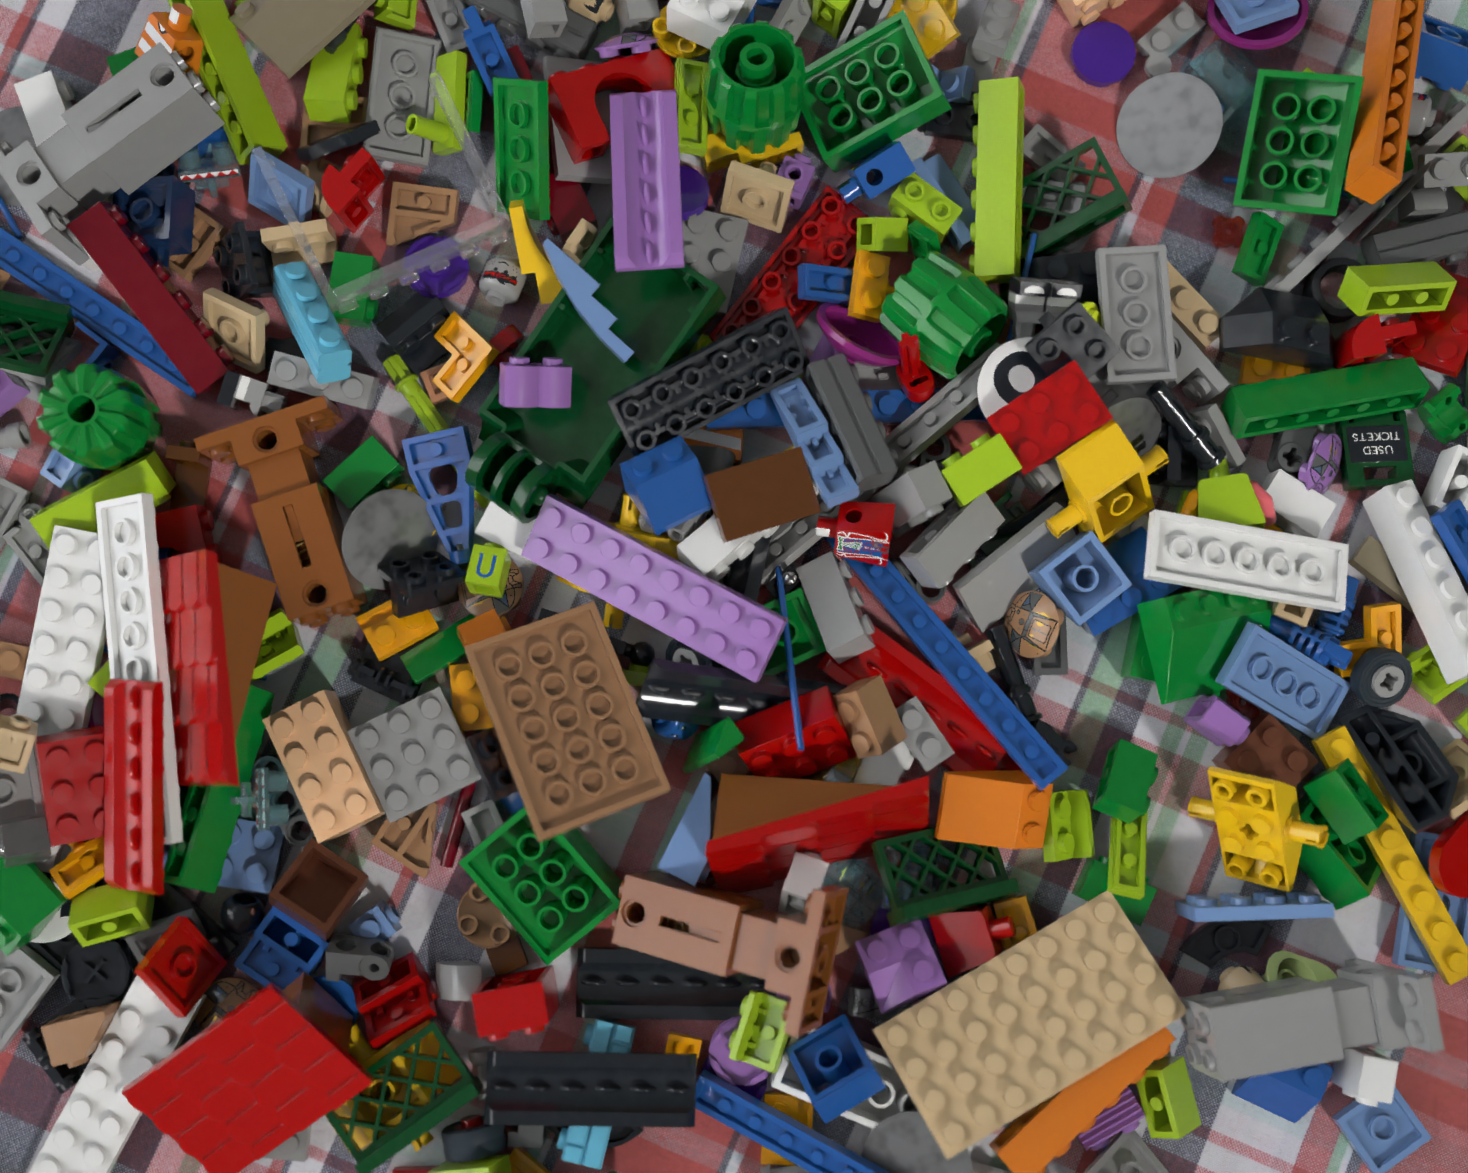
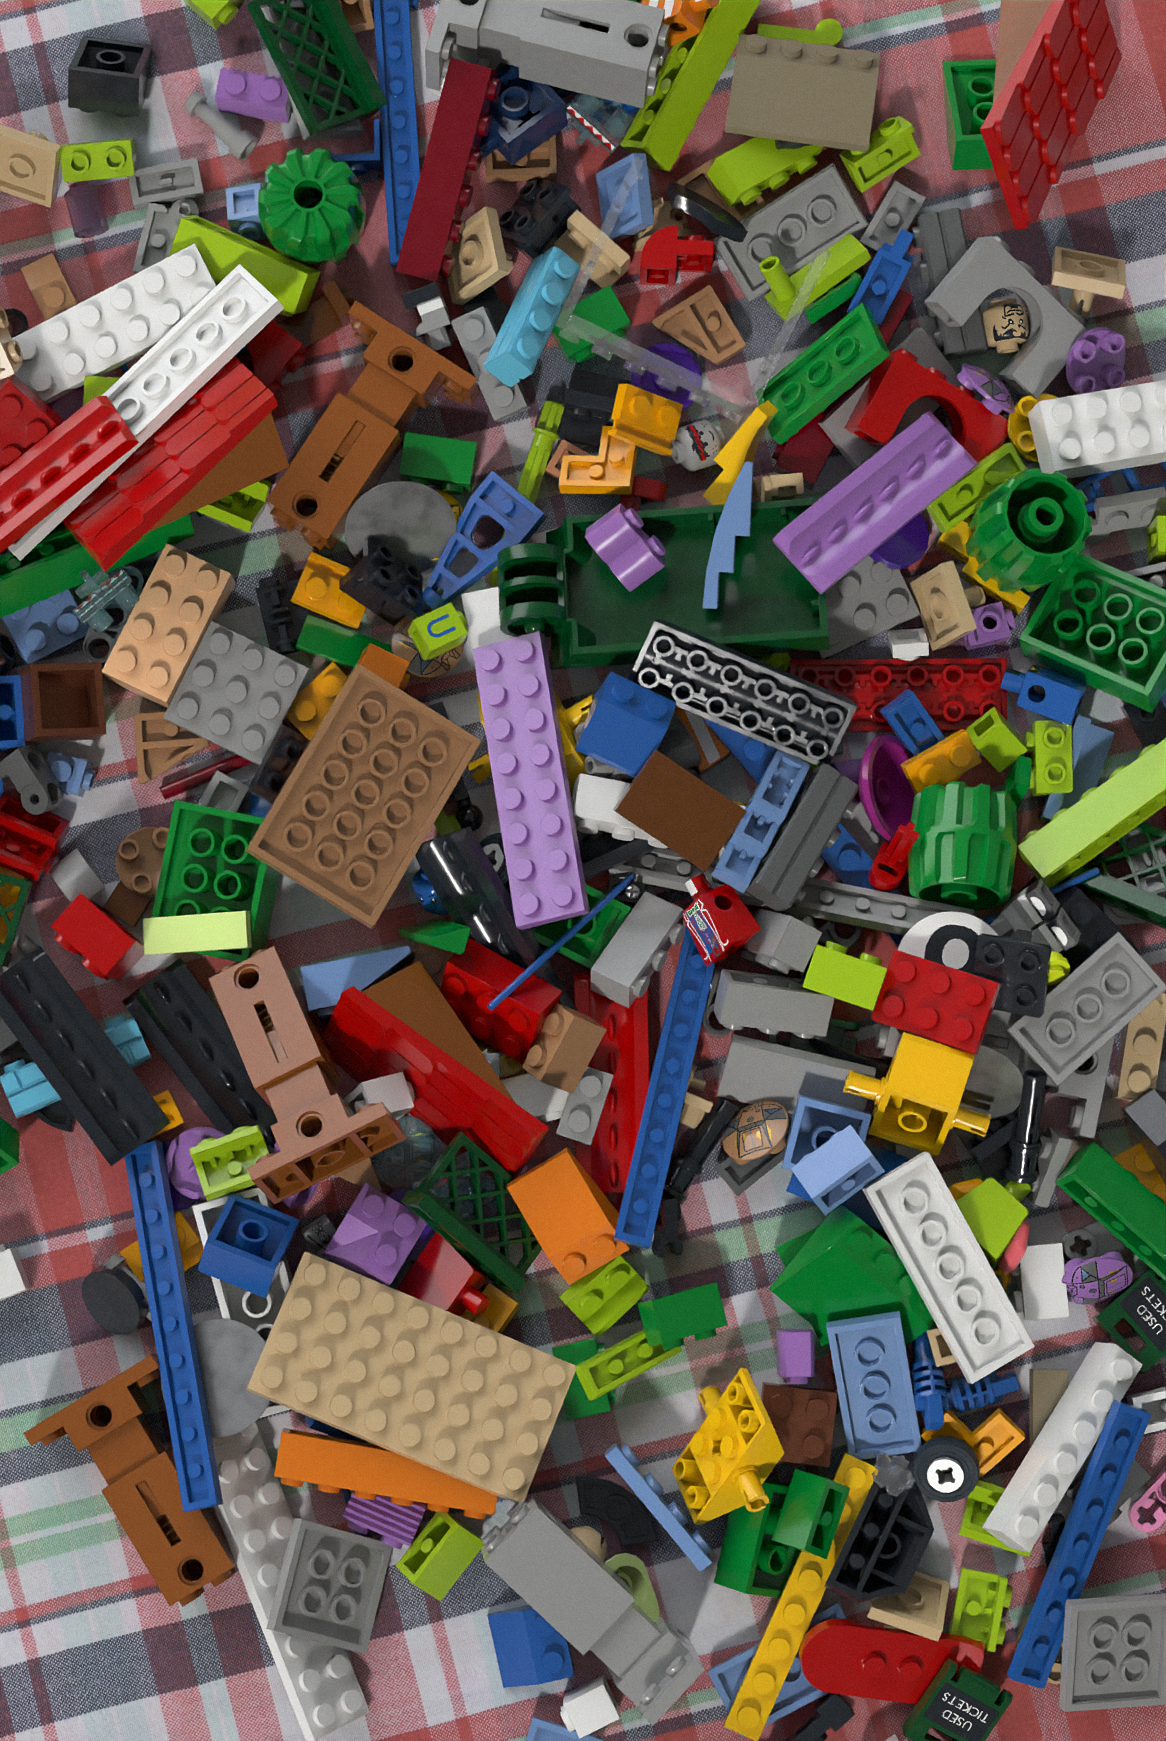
camera: 60 degrees right, 0 degrees up
(452, 299) = (645, 419): none -> light orange plate
(570, 923) = (197, 933): none -> yellowish green tile
(763, 244) = (908, 643): none -> white plate
(1117, 585) = (837, 1169): none -> medium blue brick
(1356, 719) = (892, 1474): none -> clear plant

